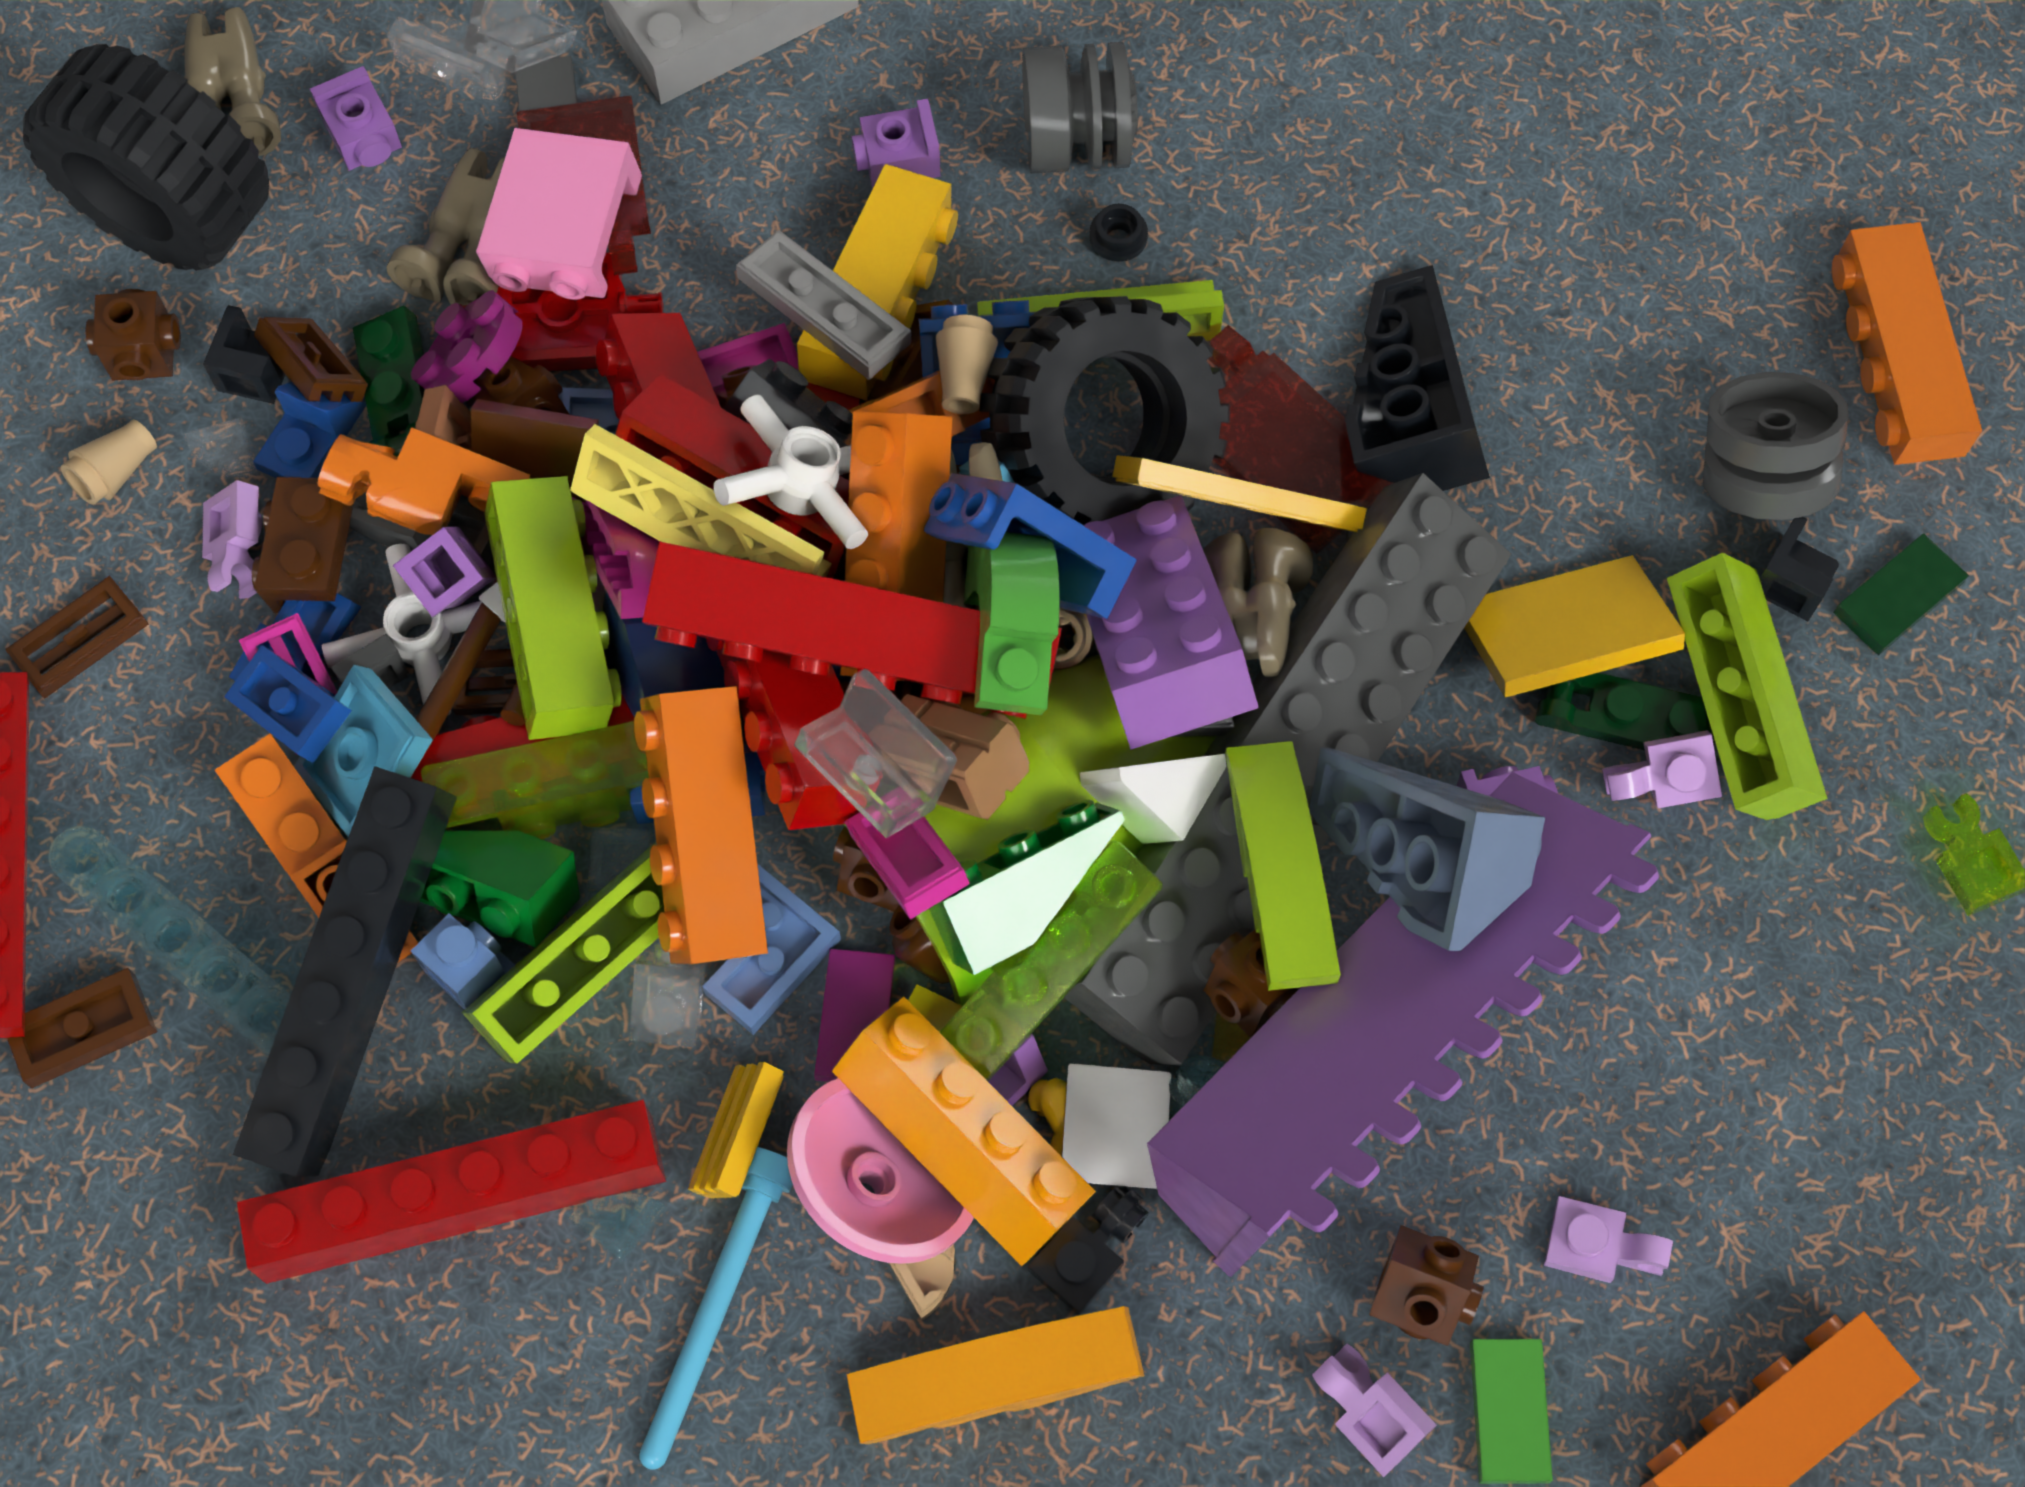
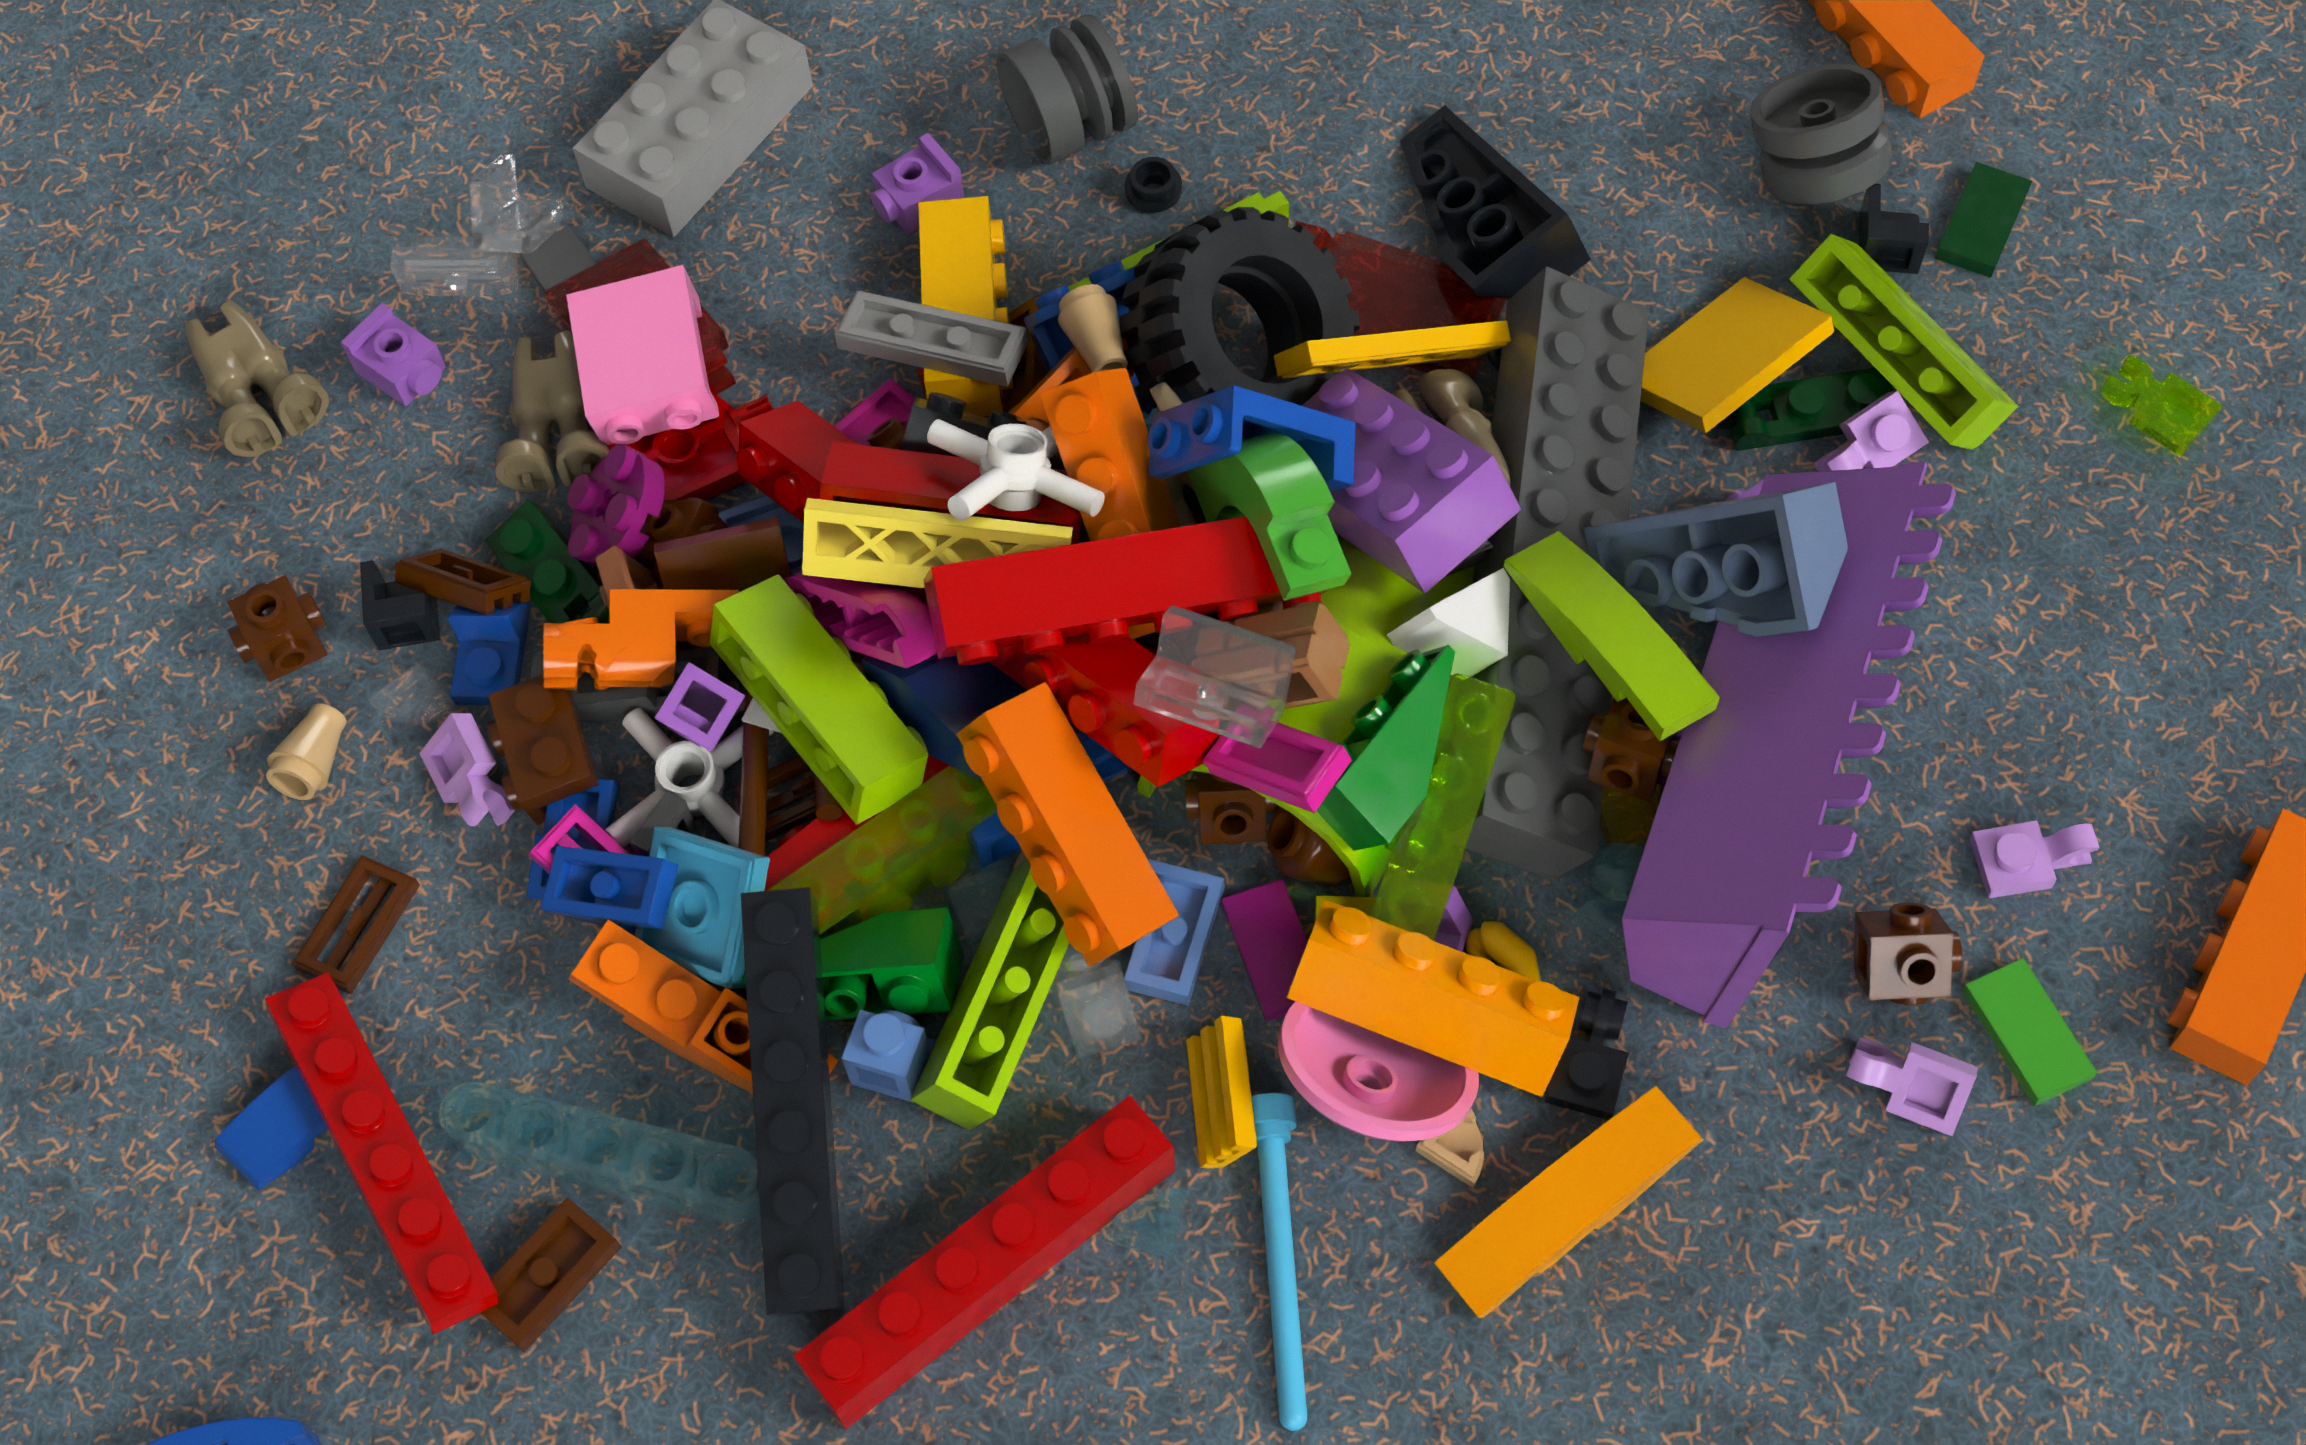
camera: 20 degrees left, 5 degrees down
(146, 156) = (223, 453): black tyre -> none
(1111, 1120) = (1562, 935): white sticker -> none

